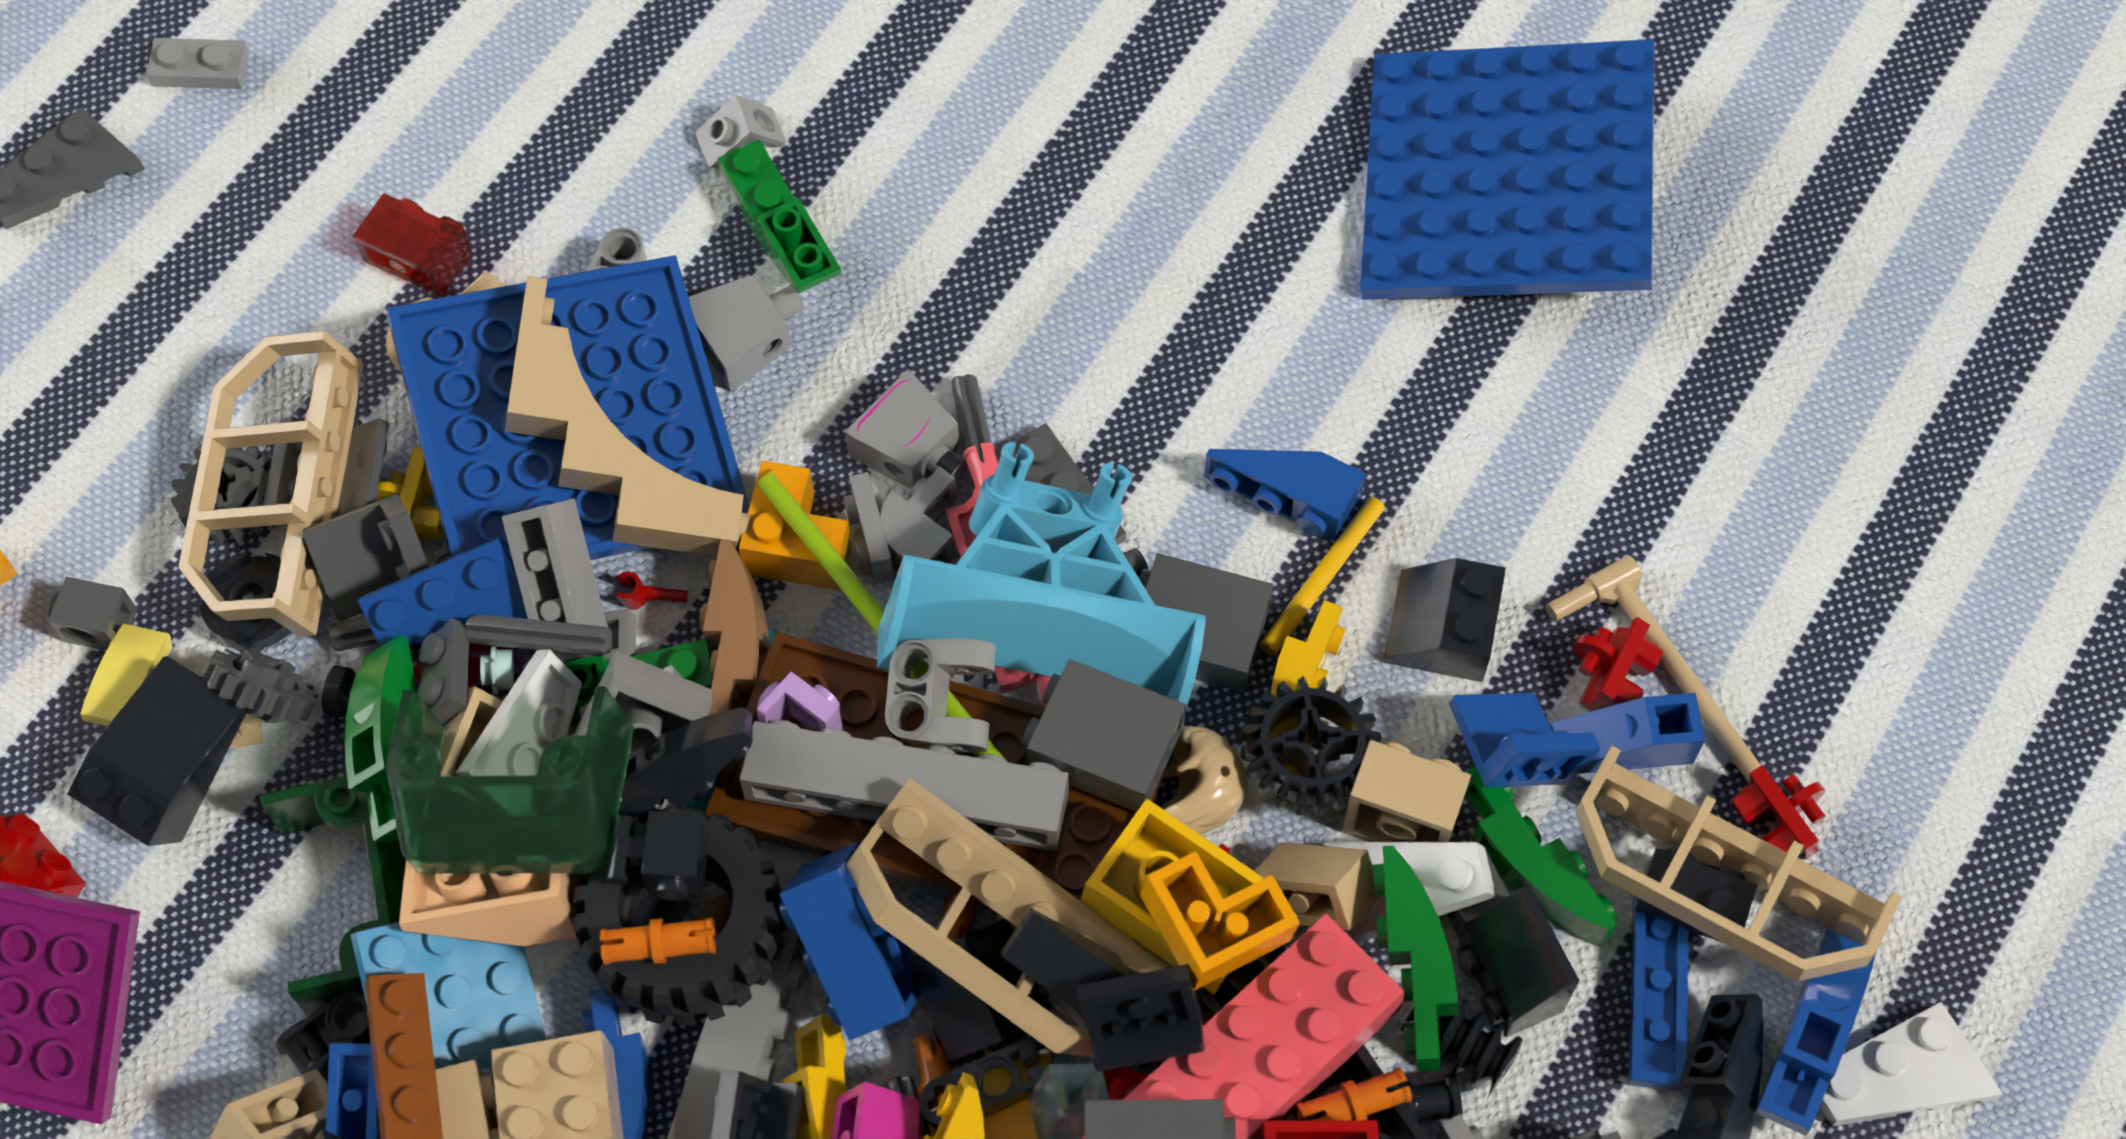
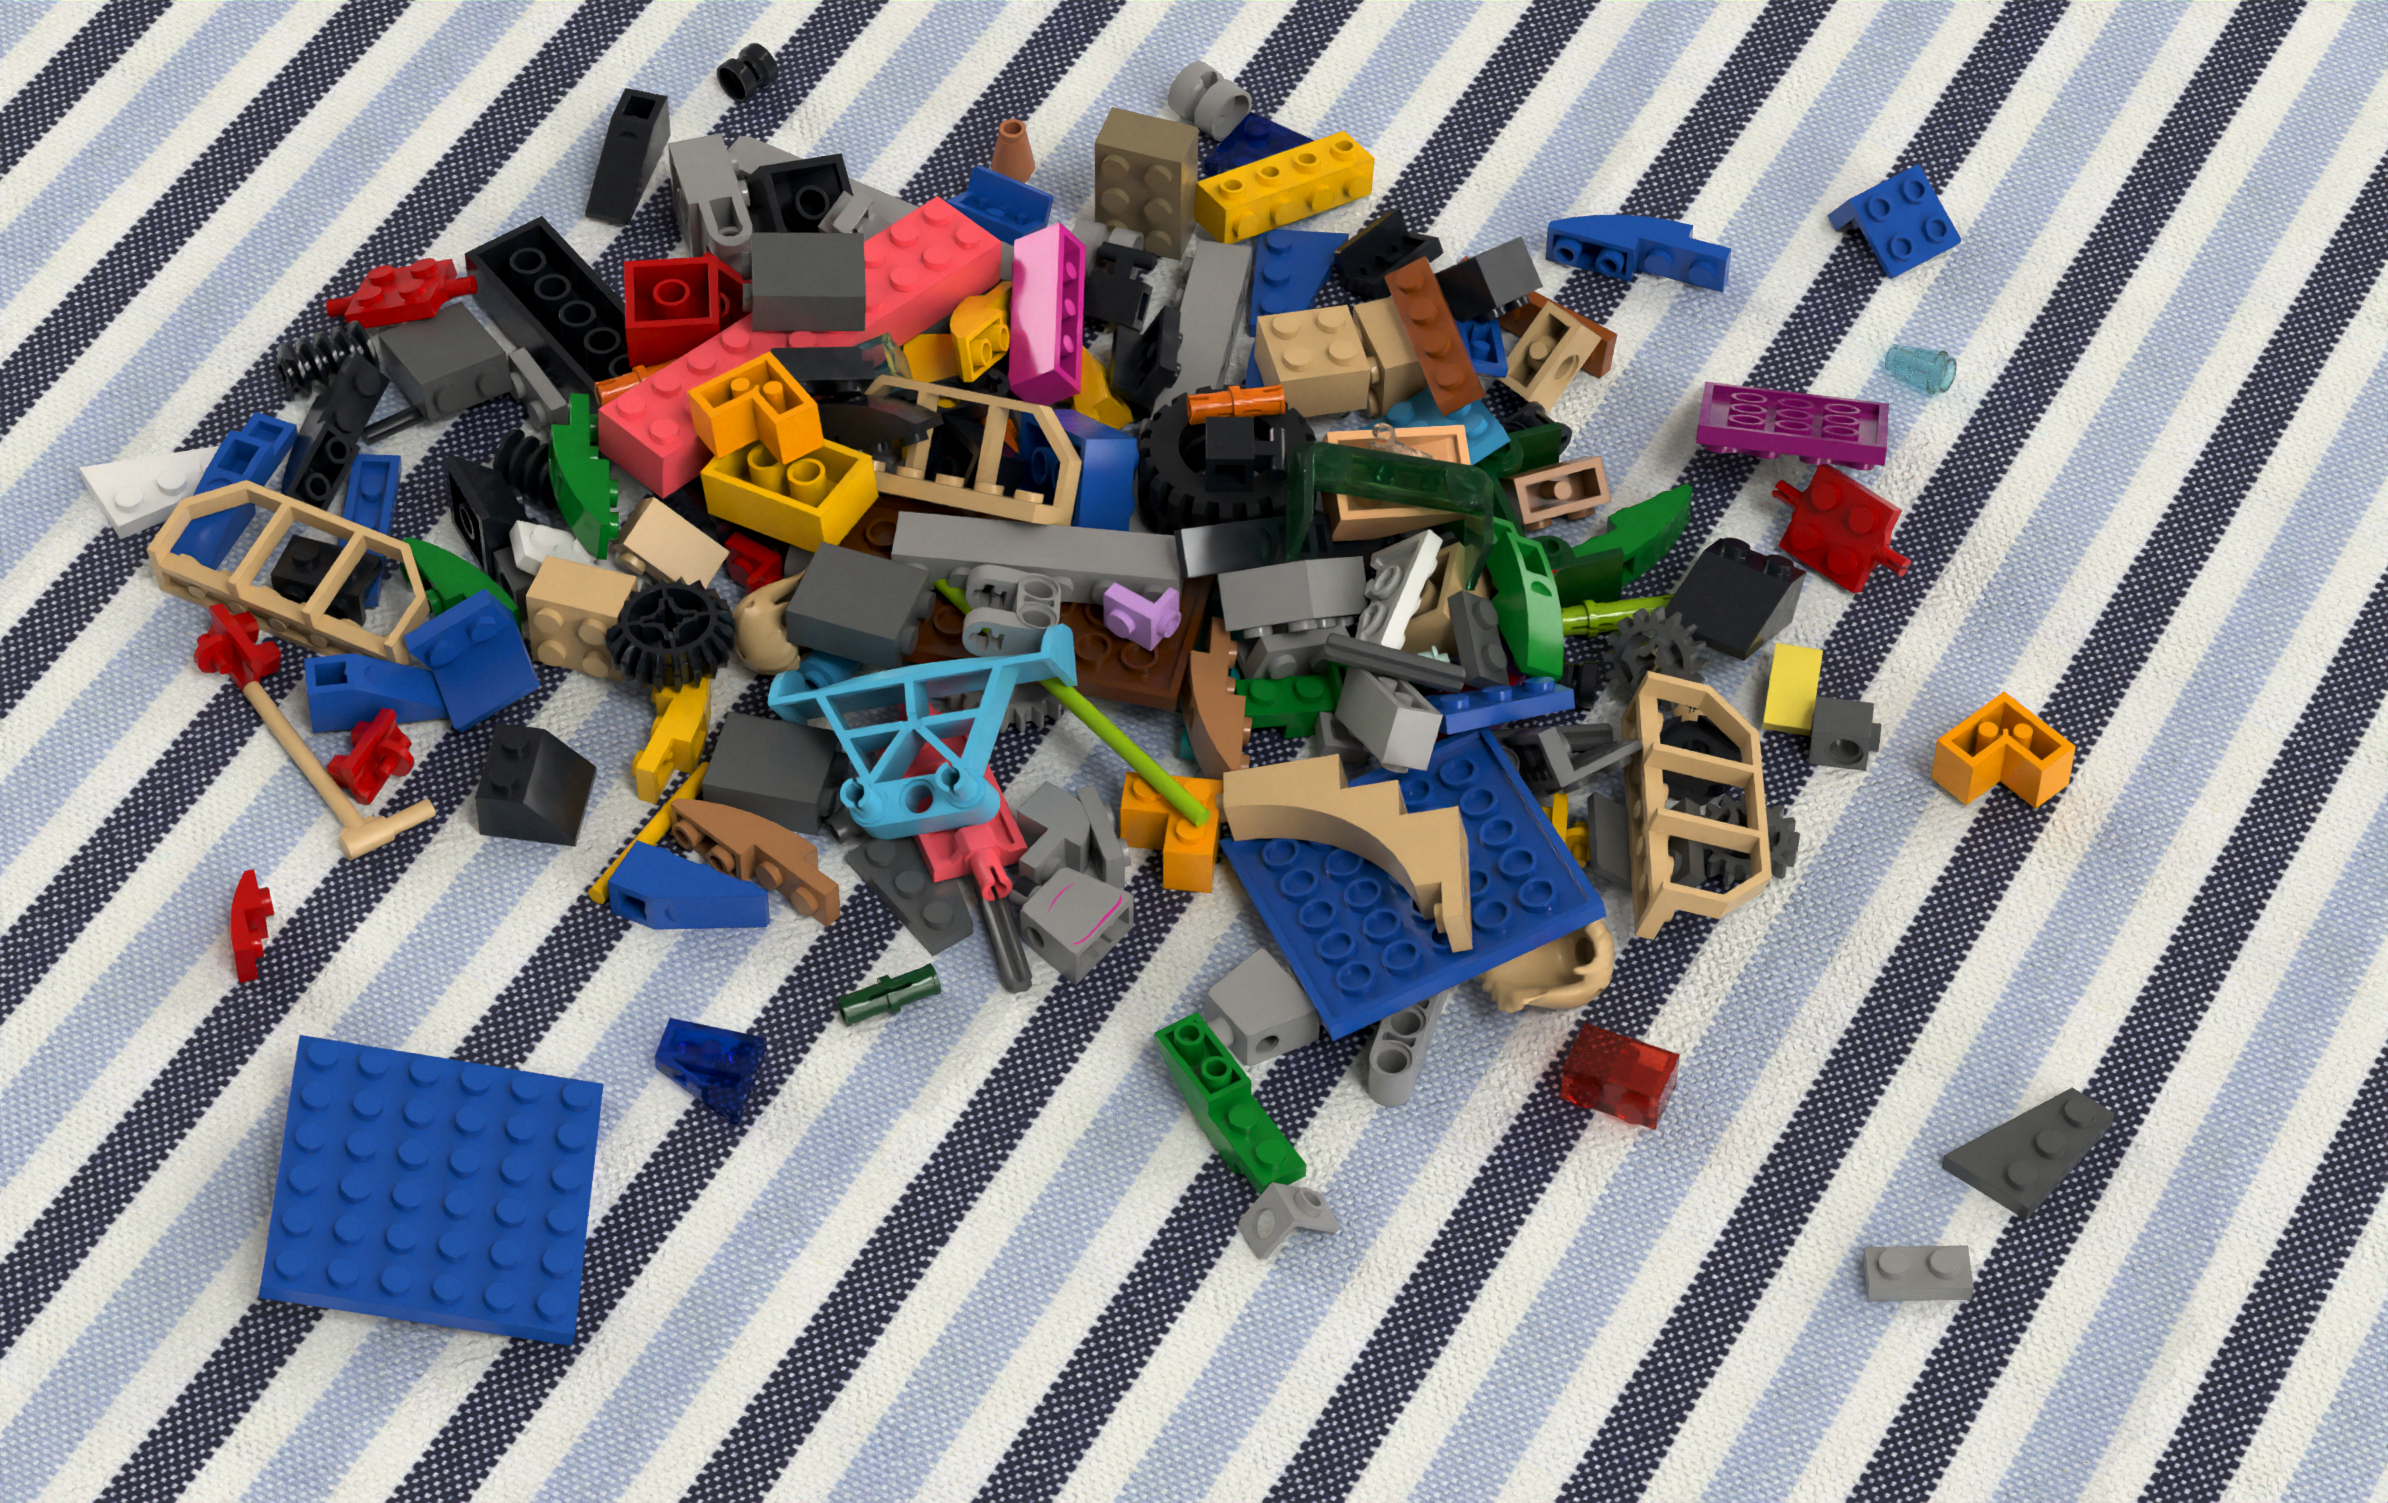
camera: 175 degrees right, 15 degrees down
(240, 881) = (1643, 531): none -> green slope
(246, 793) = (1592, 617): none -> lime pin
(305, 939) = (1556, 490): none -> medium nougat brick
(489, 877) = (1387, 433): none -> clear hand
(1090, 370) = (888, 994): none -> dark green pin
(1227, 537) = (754, 846): none -> medium nougat slope
(1258, 305) = (712, 1064): none -> clear blue wing
(1719, 477) = (249, 925): none -> red slope

